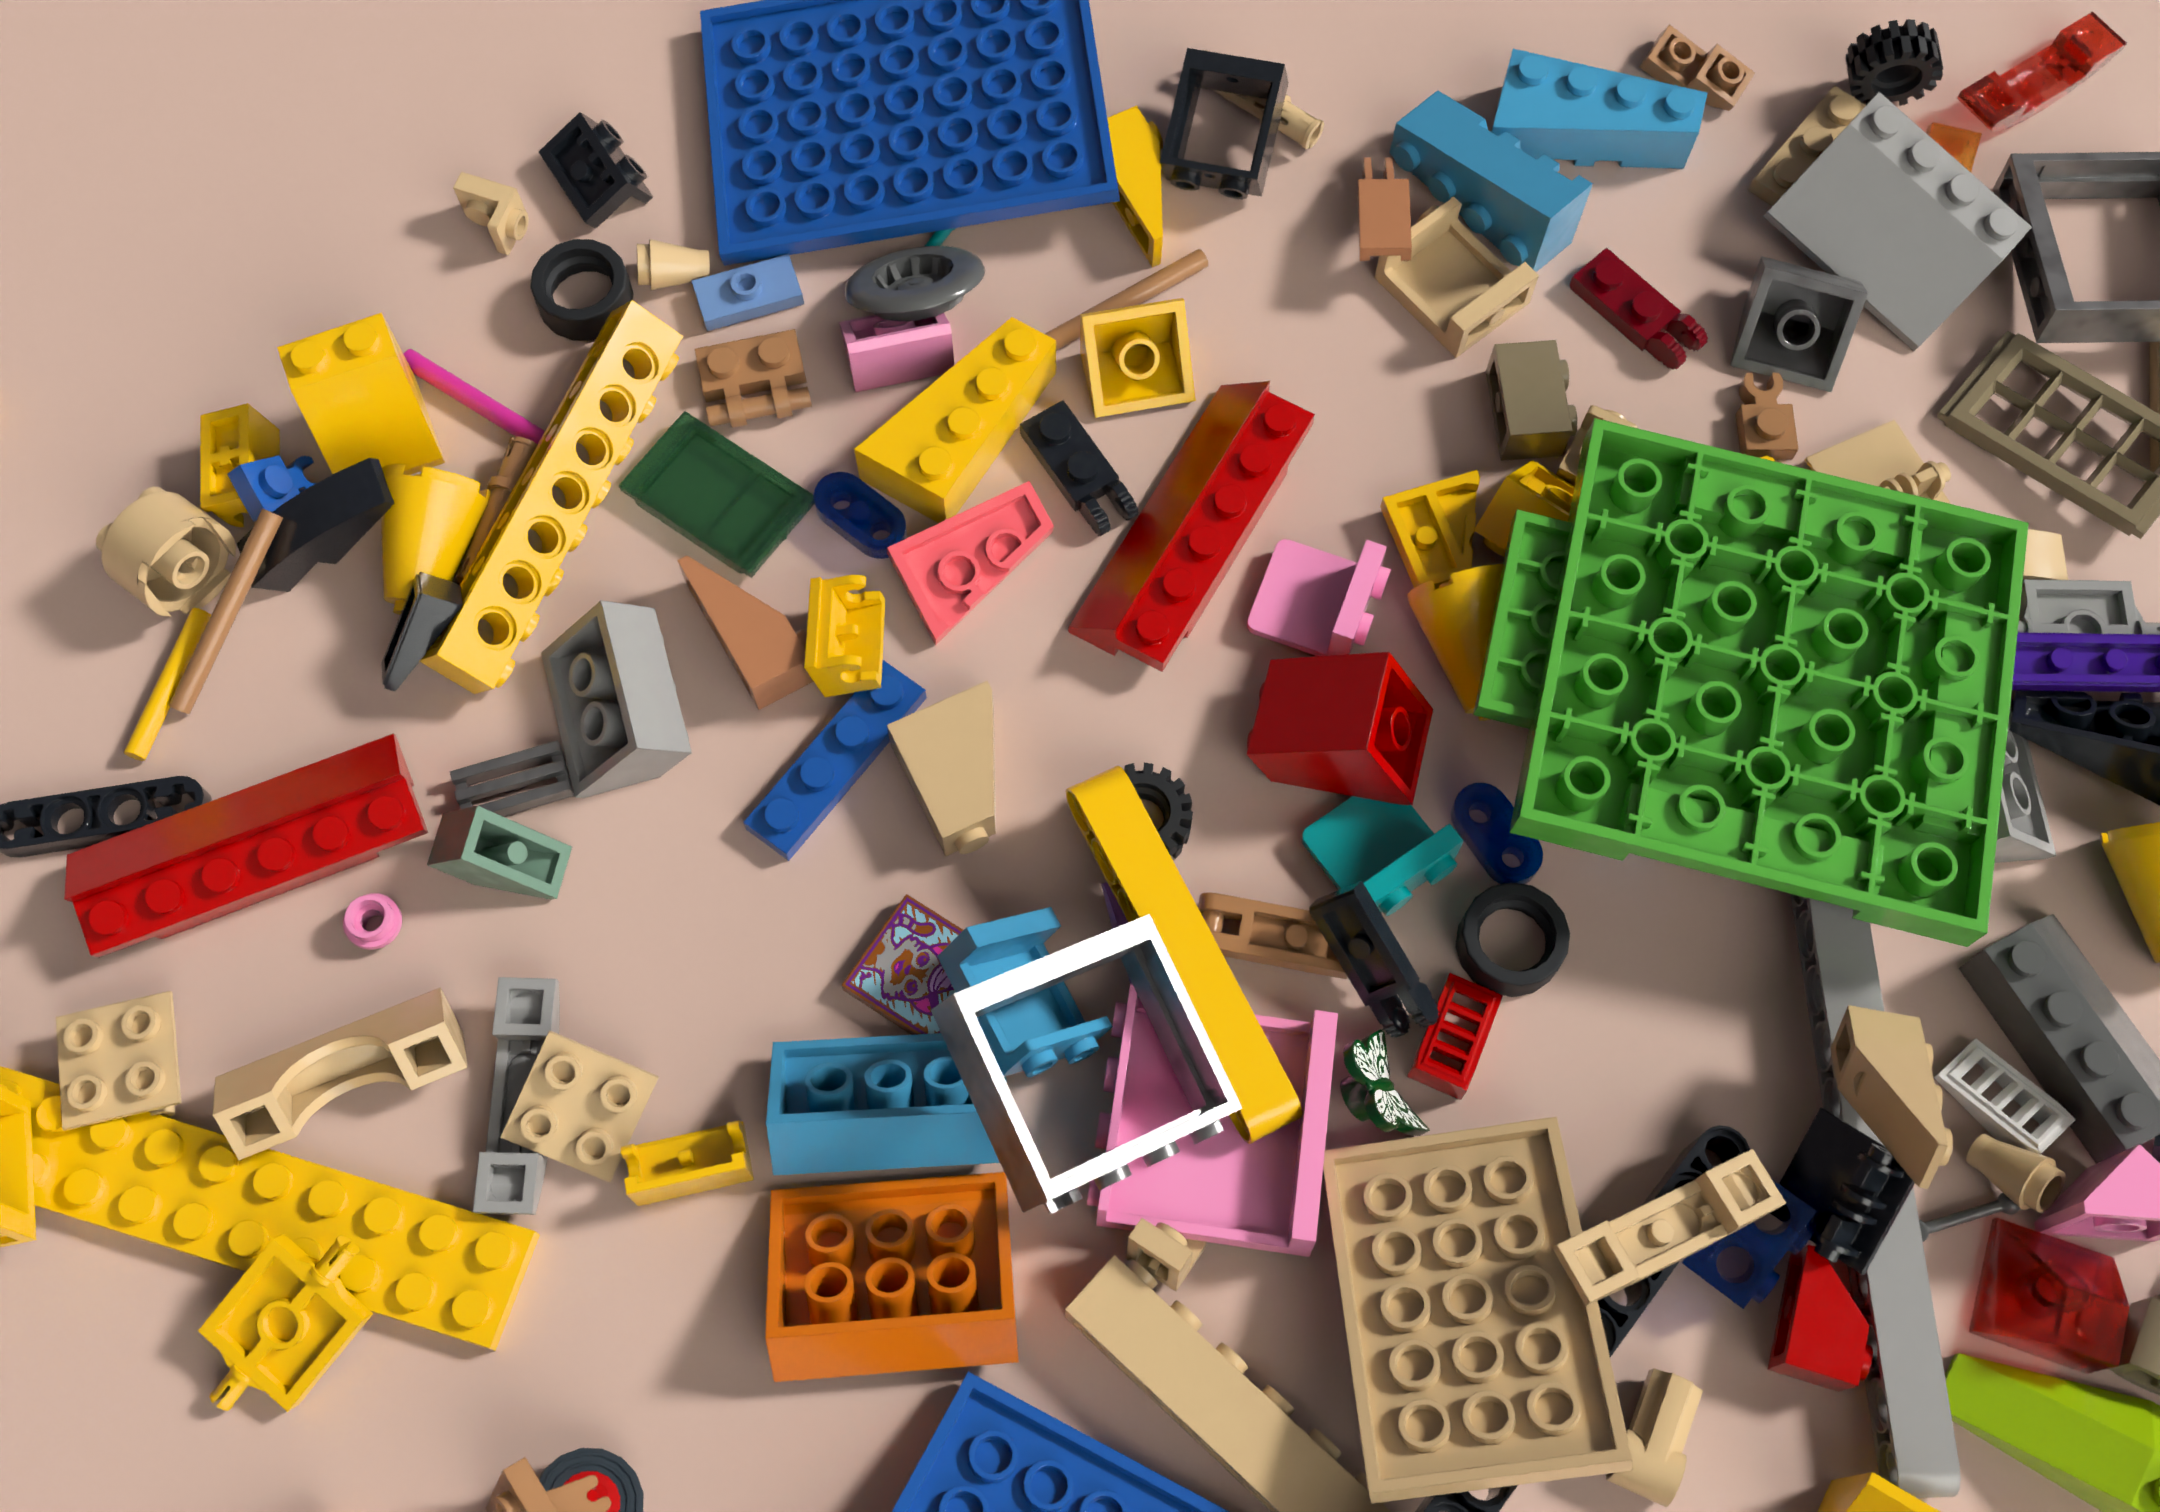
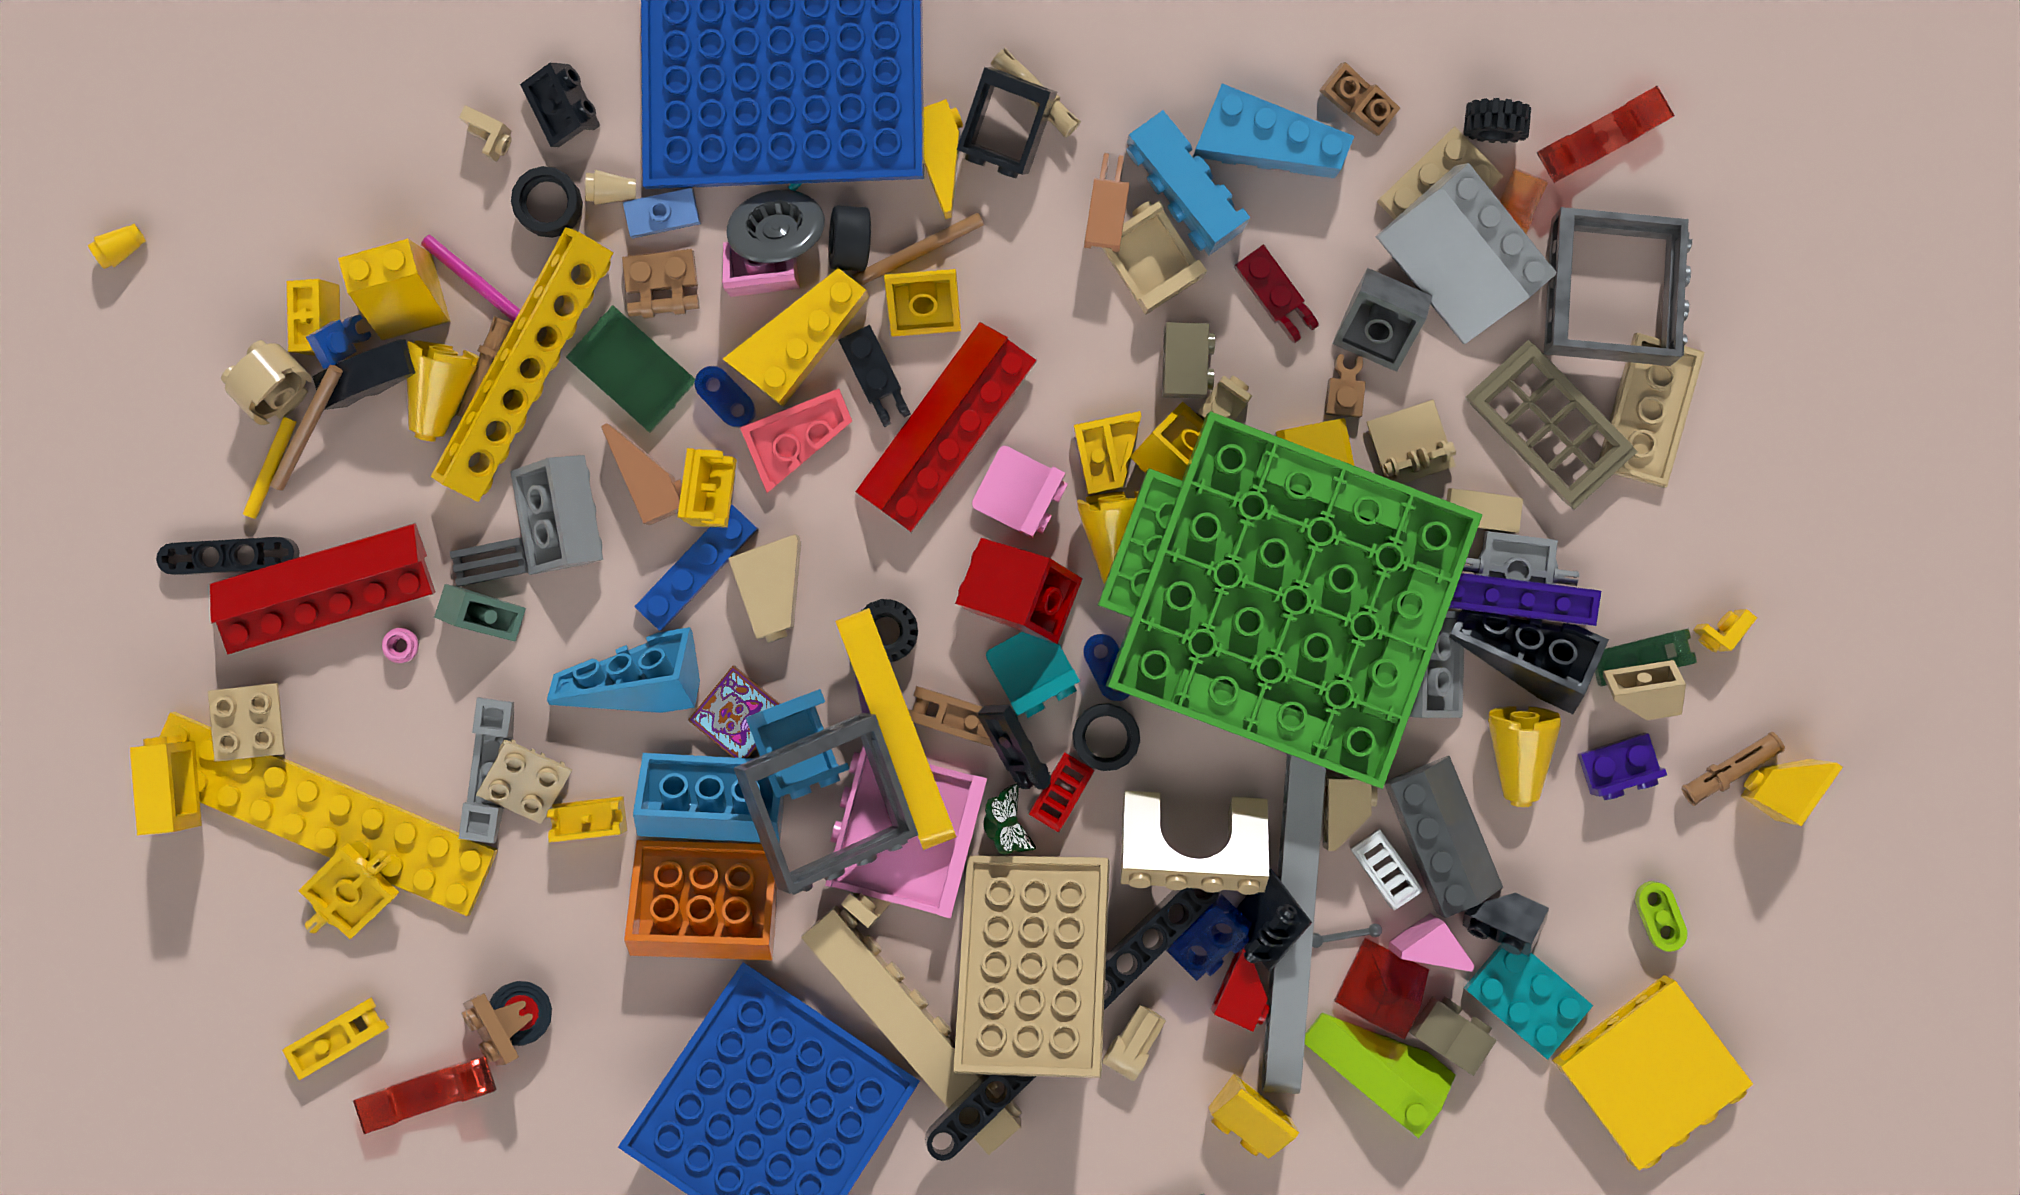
camera: 10 degrees right, 20 degrees up
(279, 1093) = (340, 755): tan arch -> none
(424, 617) = (433, 453): slope -> none
(774, 928) = (646, 678): none -> dark azure wedge
(1022, 284) = (849, 238): none -> black tyre
(1630, 1108) = (1151, 862): none -> arch
(1669, 1228) = (1154, 939): tan slope -> none
(1889, 1082) = (1304, 866): tan slope -> none
(1923, 987) = (1345, 808): none -> tan slope
(2020, 1174) = (1381, 918): tan cone -> none

